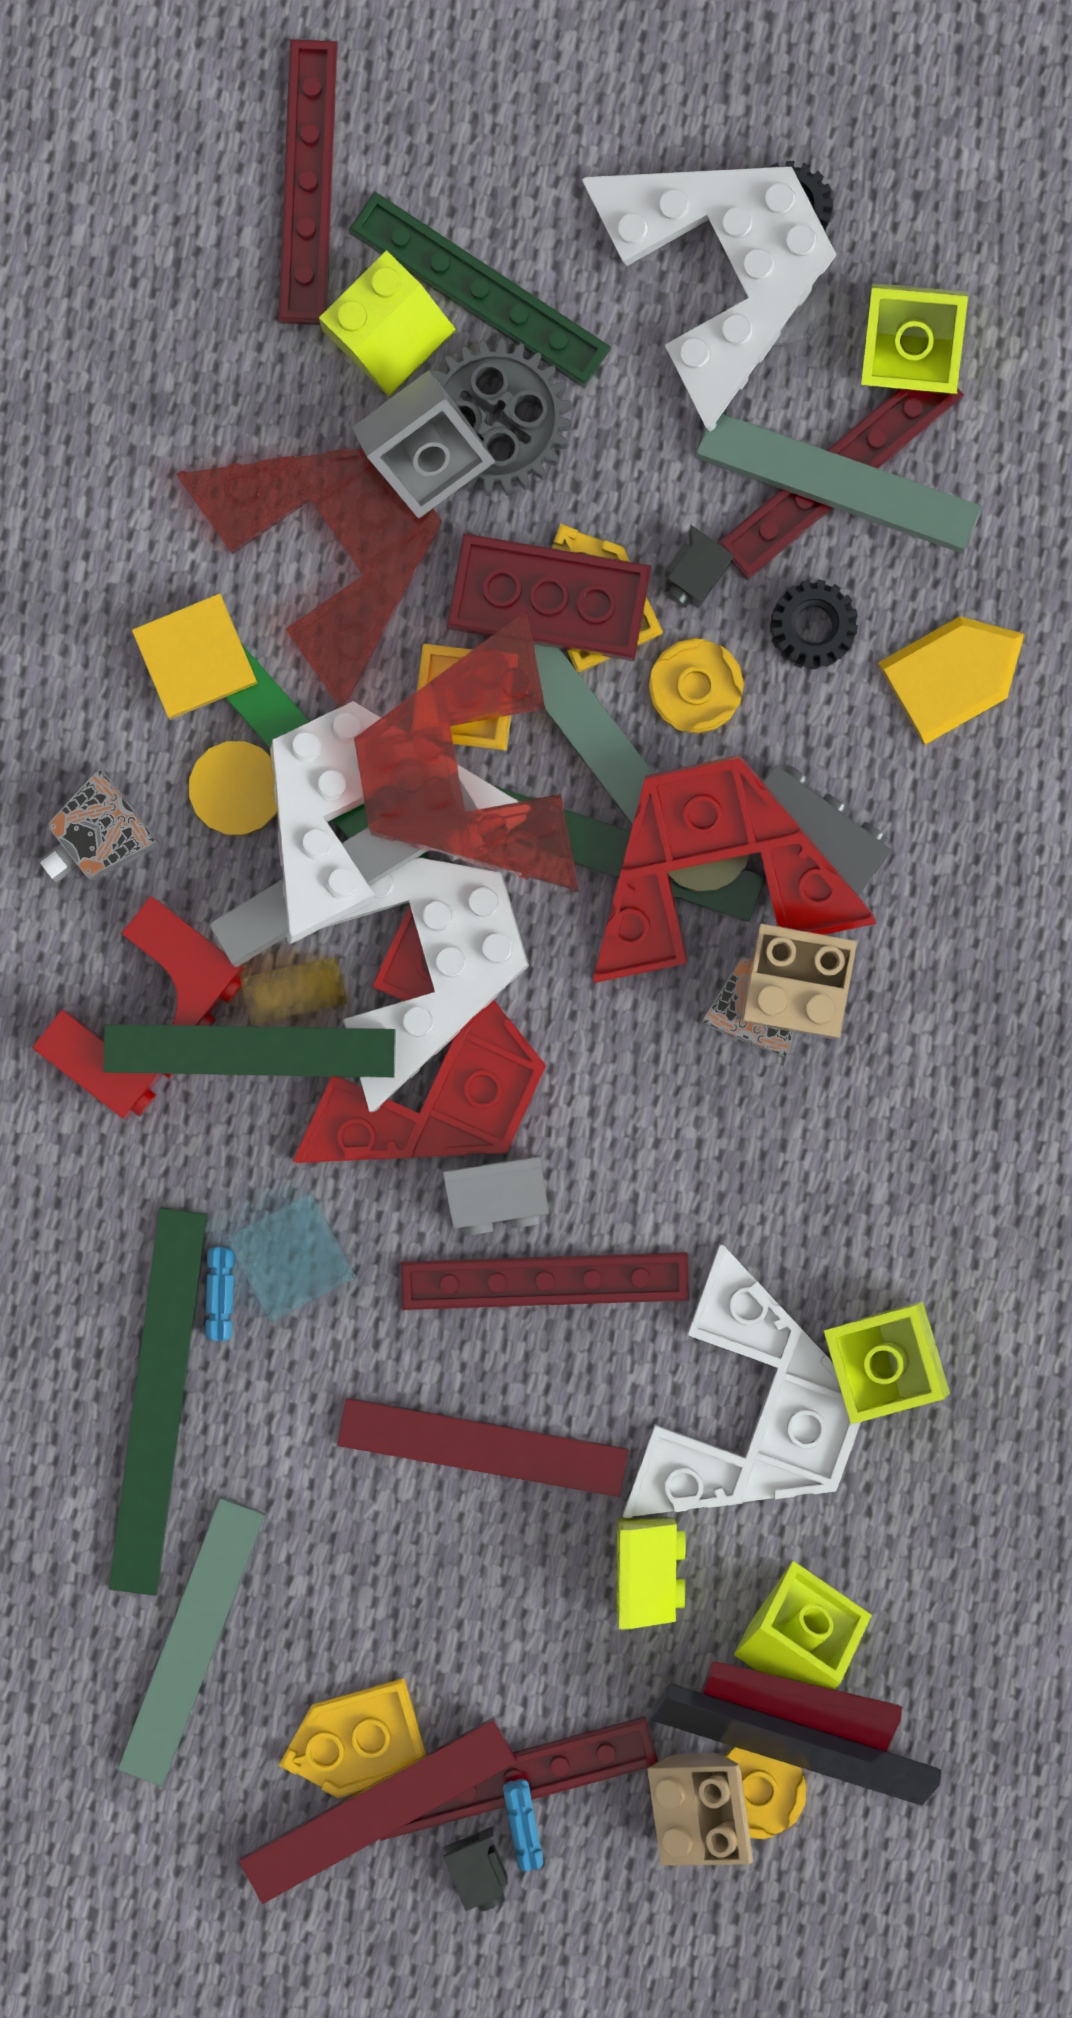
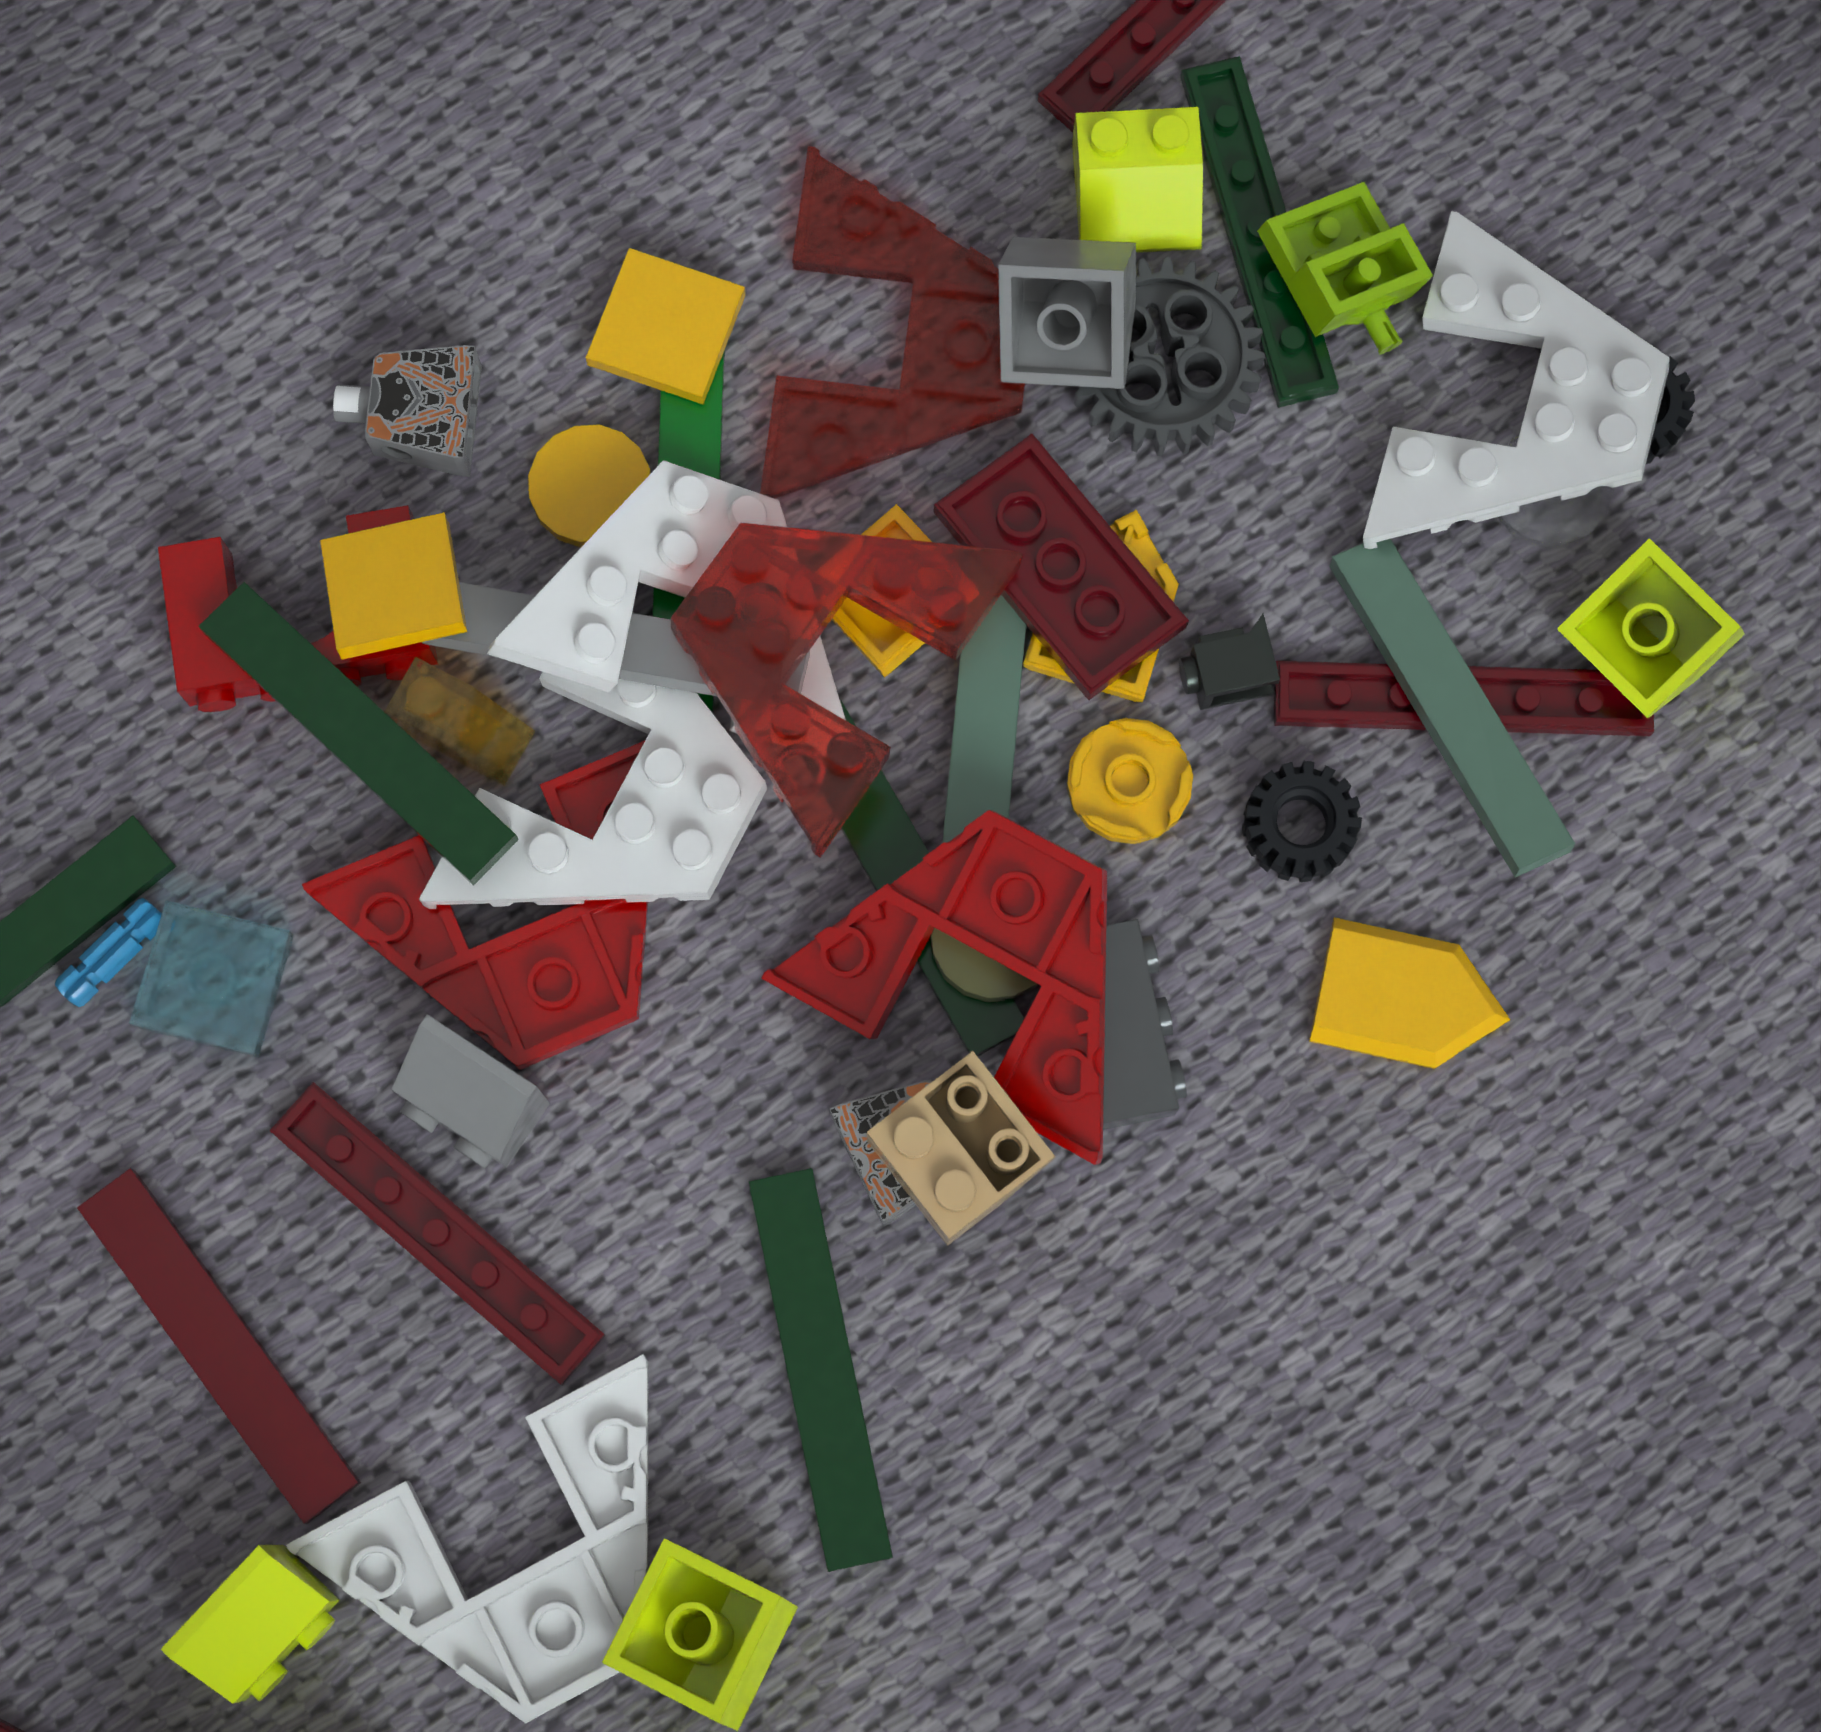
camera: 45 degrees right, 10 degrees down
(191, 950) = (393, 586): none -> yellow tile
(551, 268) = (1346, 263): none -> lime plate
(819, 1165) = (820, 1370): none -> dark green tile

